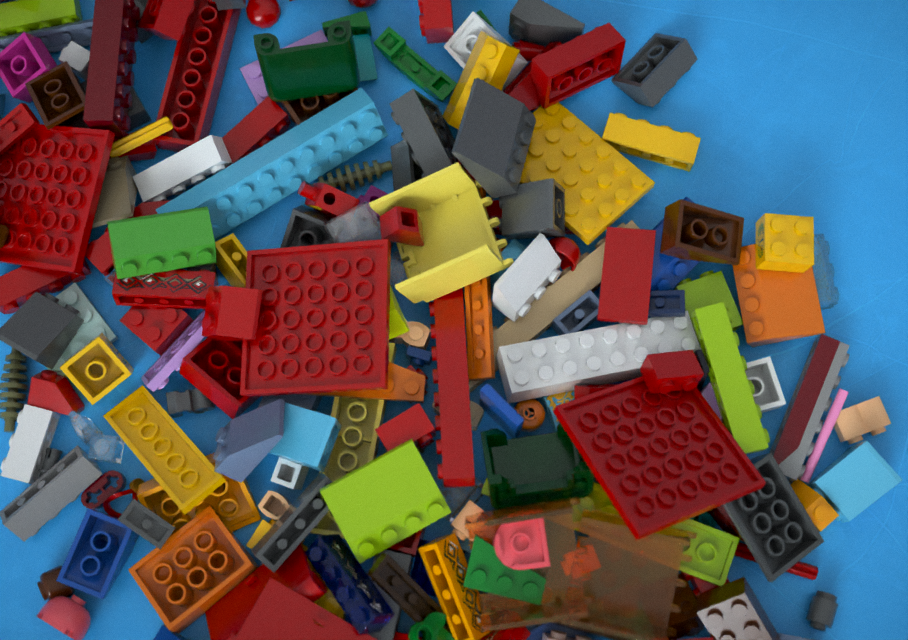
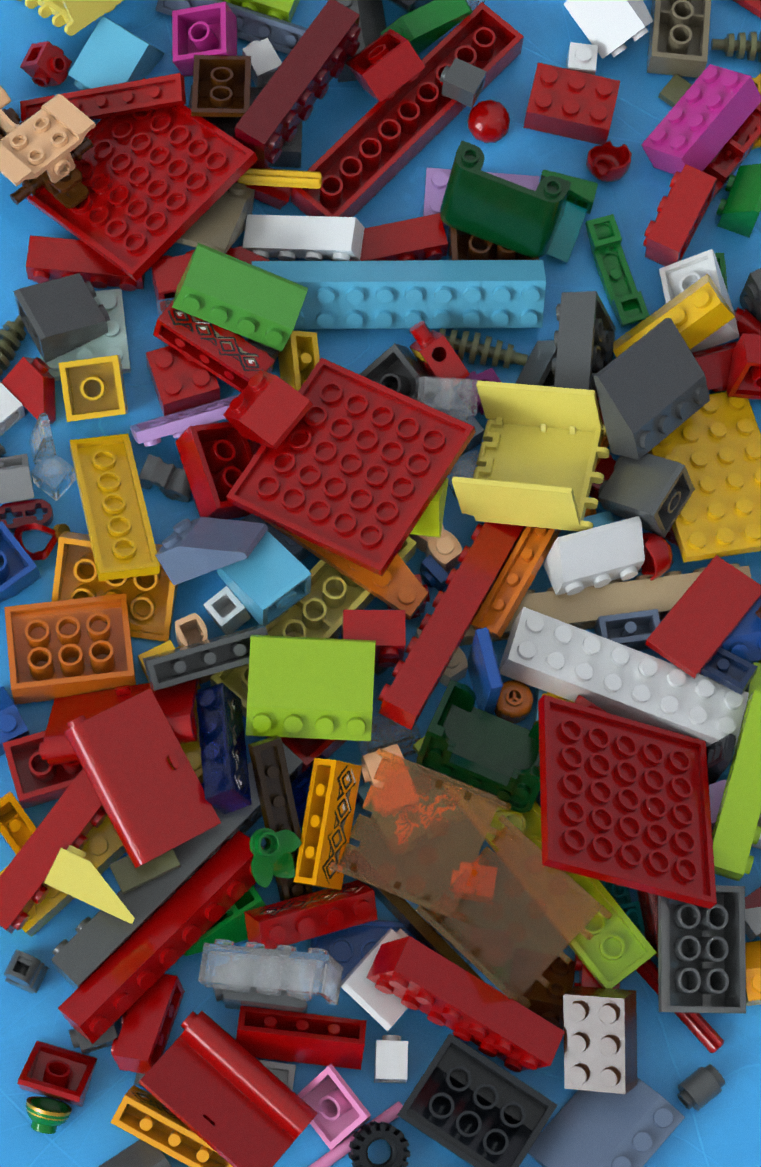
camera: 20 degrees right, 5 degrees down
(146, 523) = (51, 571): dark grey plate -> none
(402, 226) = (498, 426): red slope -> none
(491, 576) = (384, 833): green wing -> none
(522, 545) = (425, 812): coral tile -> none
(671, 371) = (689, 739): red brick -> none

